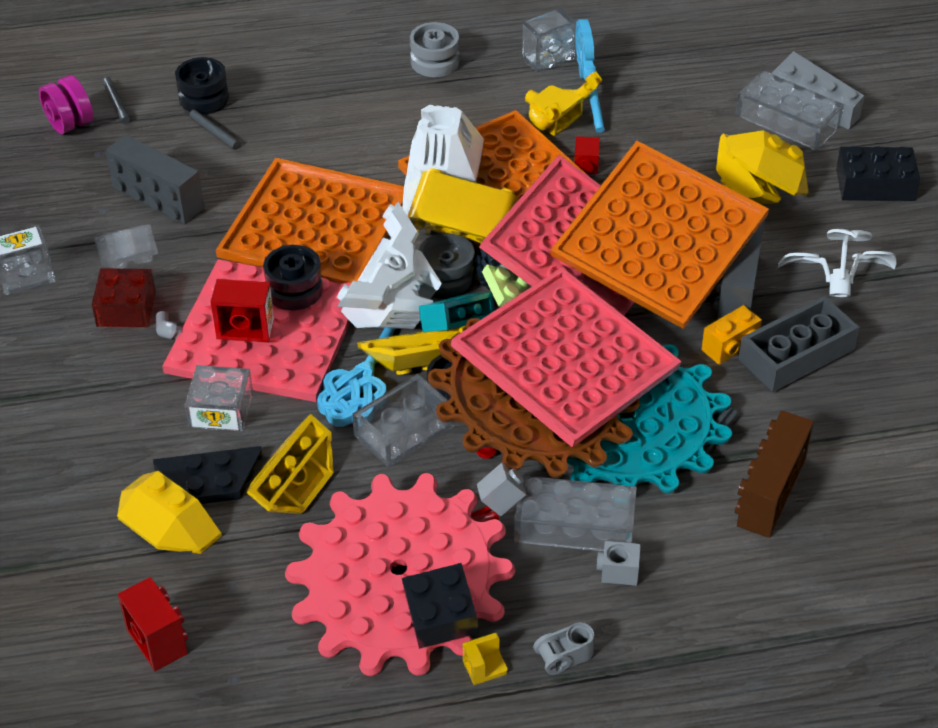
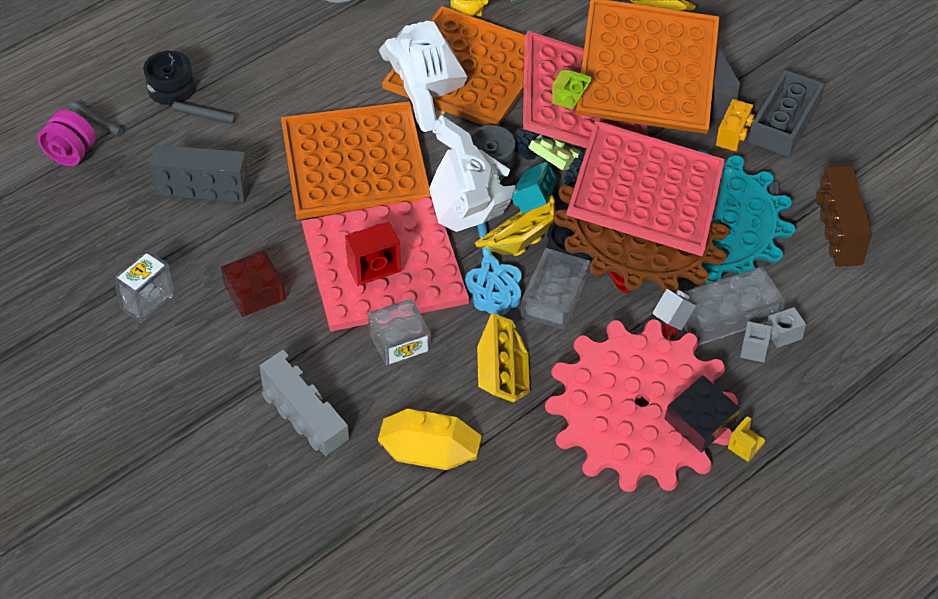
camera: 30 degrees left, 5 degrees up
(71, 425) = (302, 404): none -> light grey wedge
(126, 245) = (225, 239): clear brick -> none
(153, 623) = (499, 525): red brick -> none
(165, 328) = (305, 295): light grey arm -> none
(212, 475) = (440, 392): black wing -> none
(293, 276) = (385, 203): black wheel -> none
(458, 206) = (478, 102): yellow windscreen -> none
(552, 224) = (569, 88): none -> lime slope
(562, 648) = (792, 406): light grey piece -> none
(570, 562) = (756, 342): none -> light grey brick
(587, 154) = (523, 20): red brick -> none
(841, 280) = (777, 52): white plant -> none

